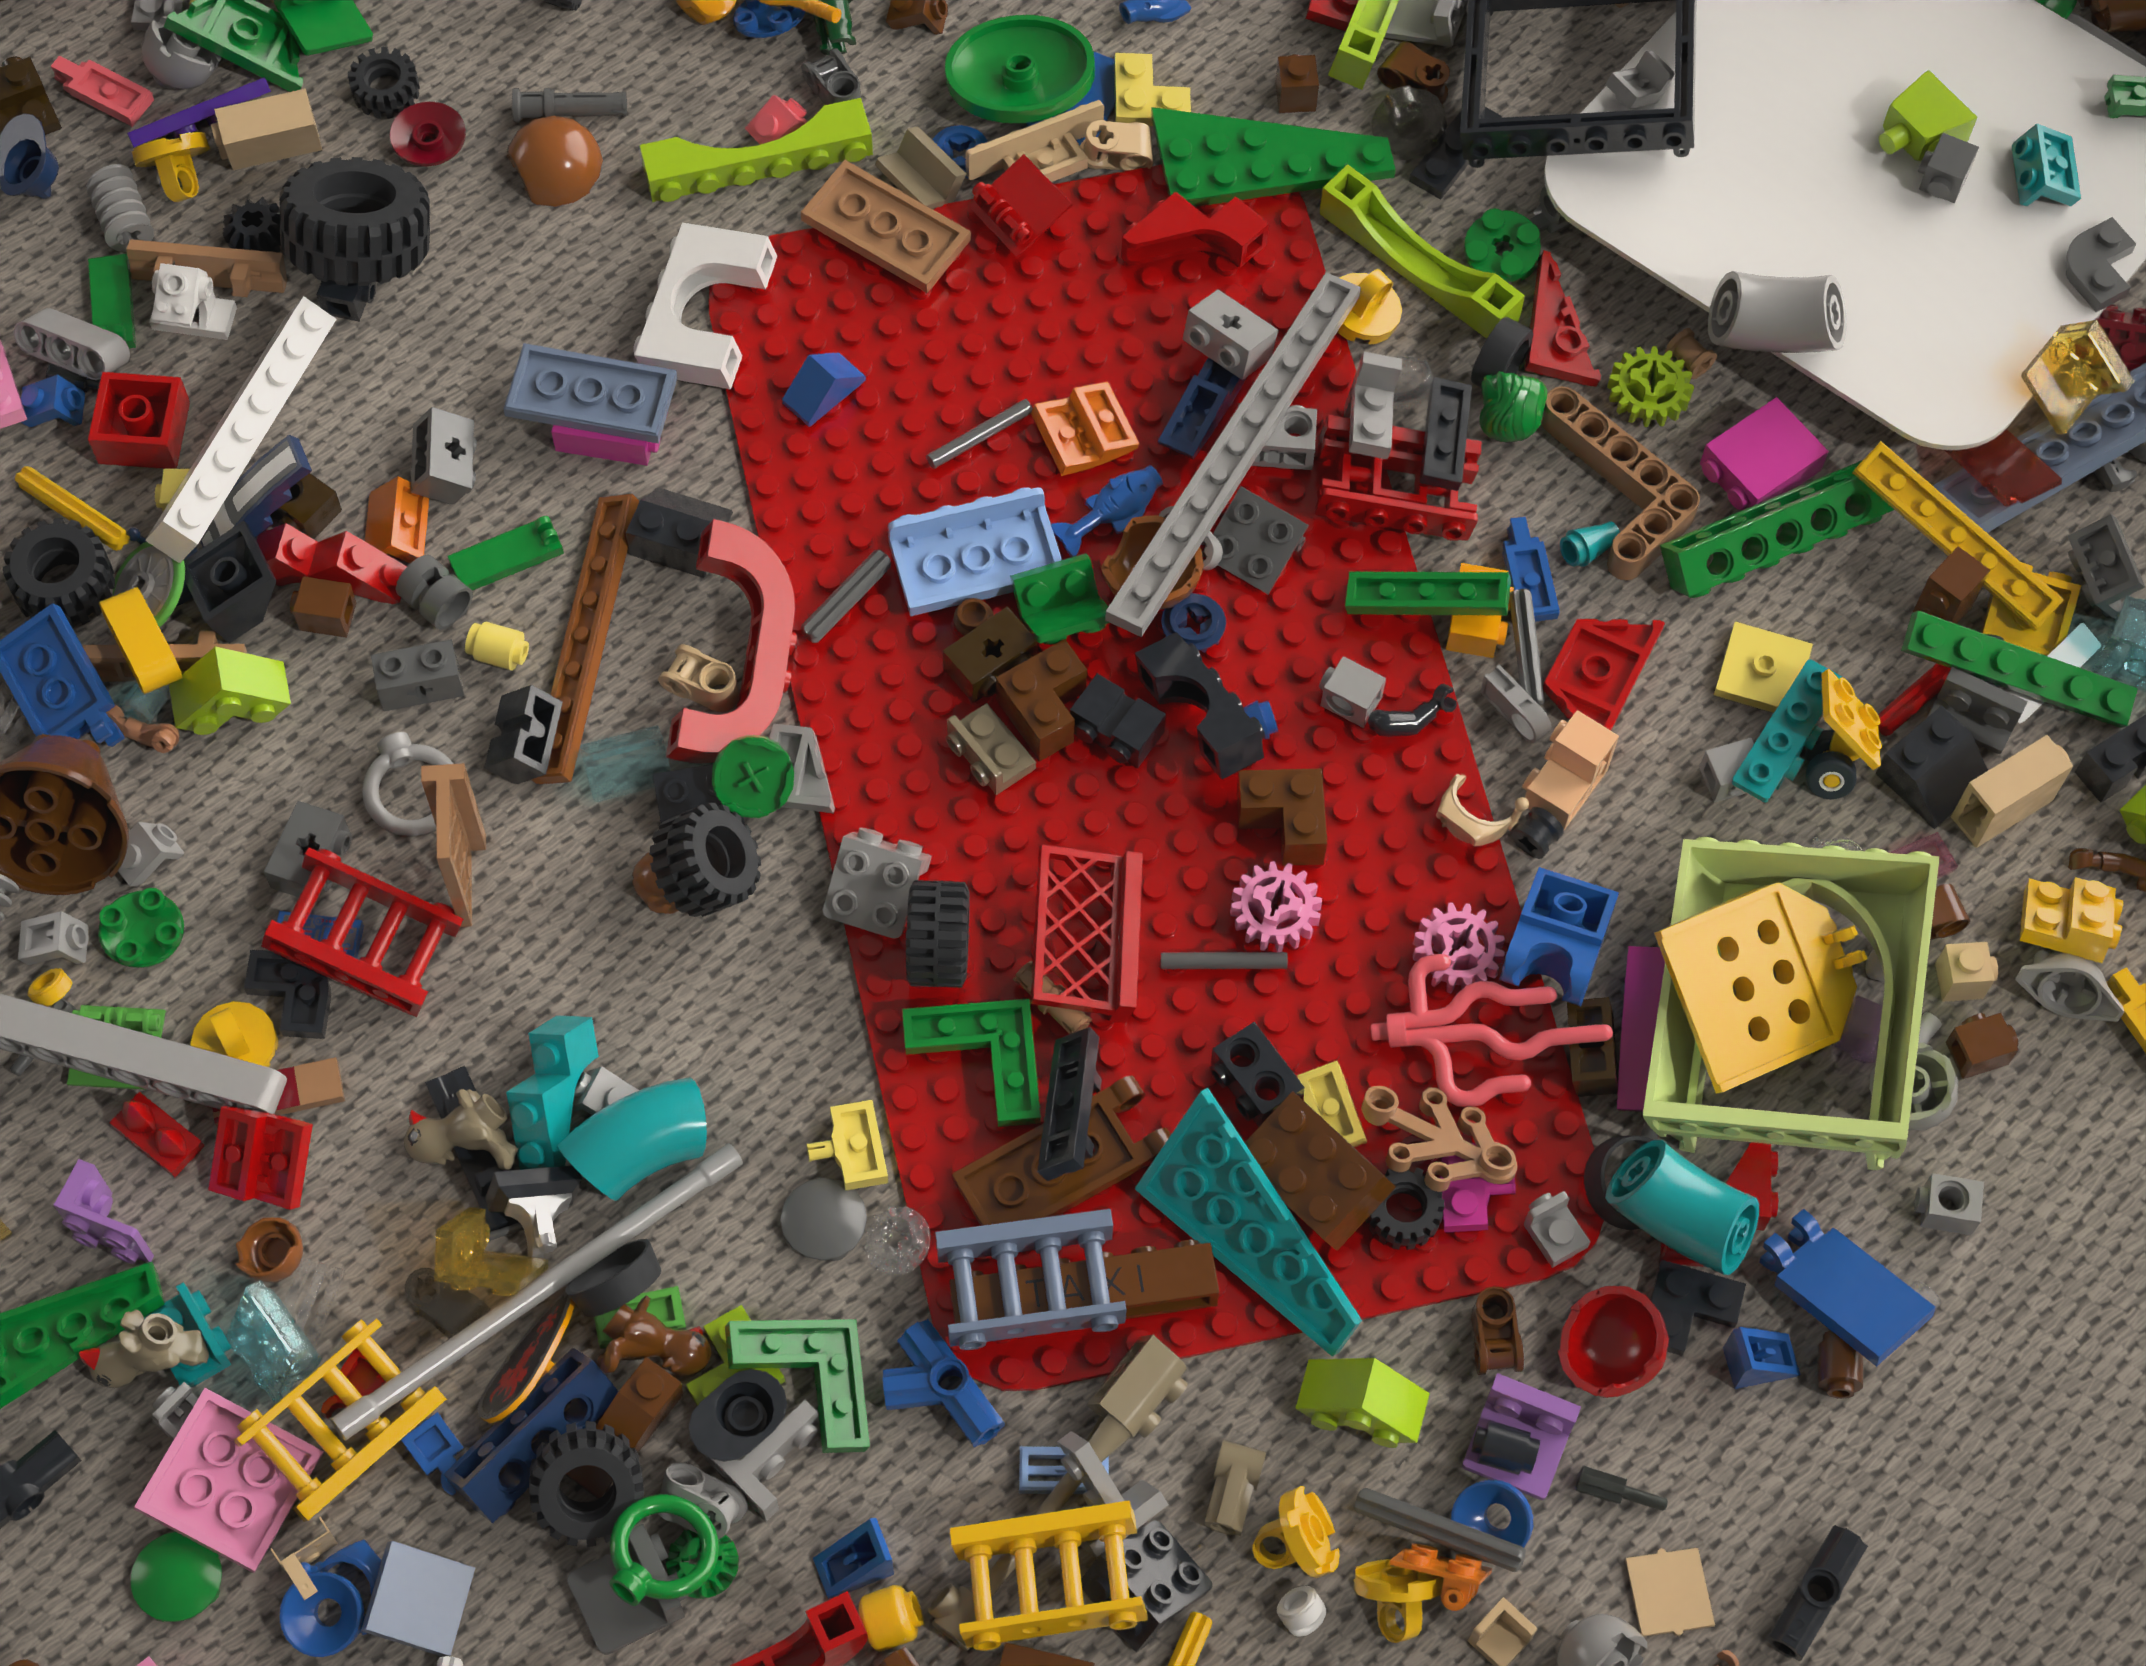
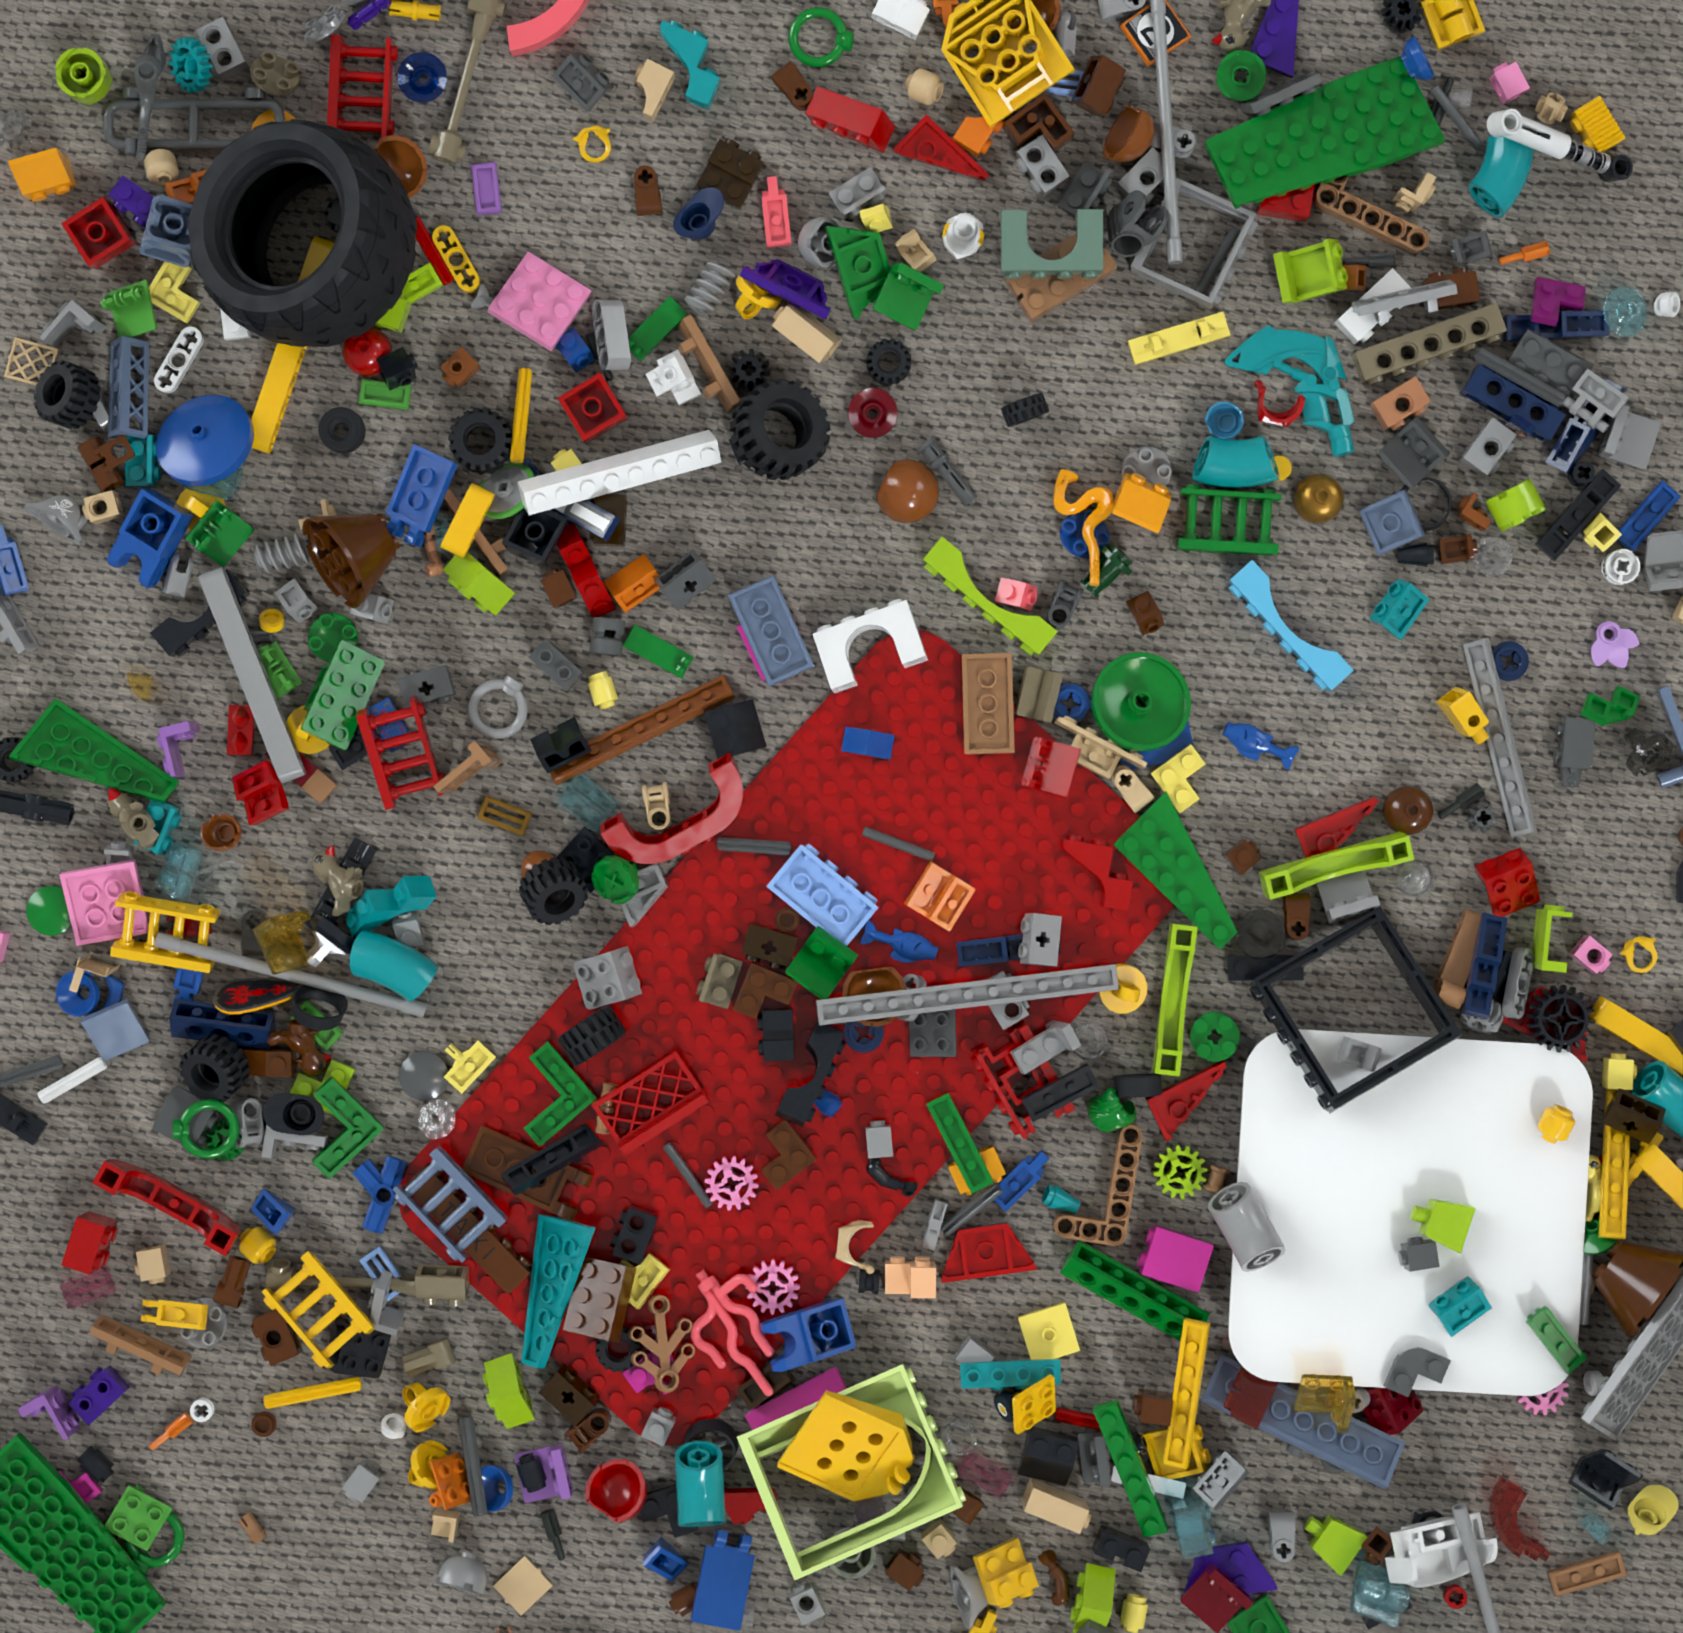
camera: 60 degrees right, 25 degrees up
(220, 958) = (339, 693): none -> green bracket
(564, 889) = (524, 823): none -> pearl gold tile
(1451, 1314) = (572, 1406): none -> dark brown brick

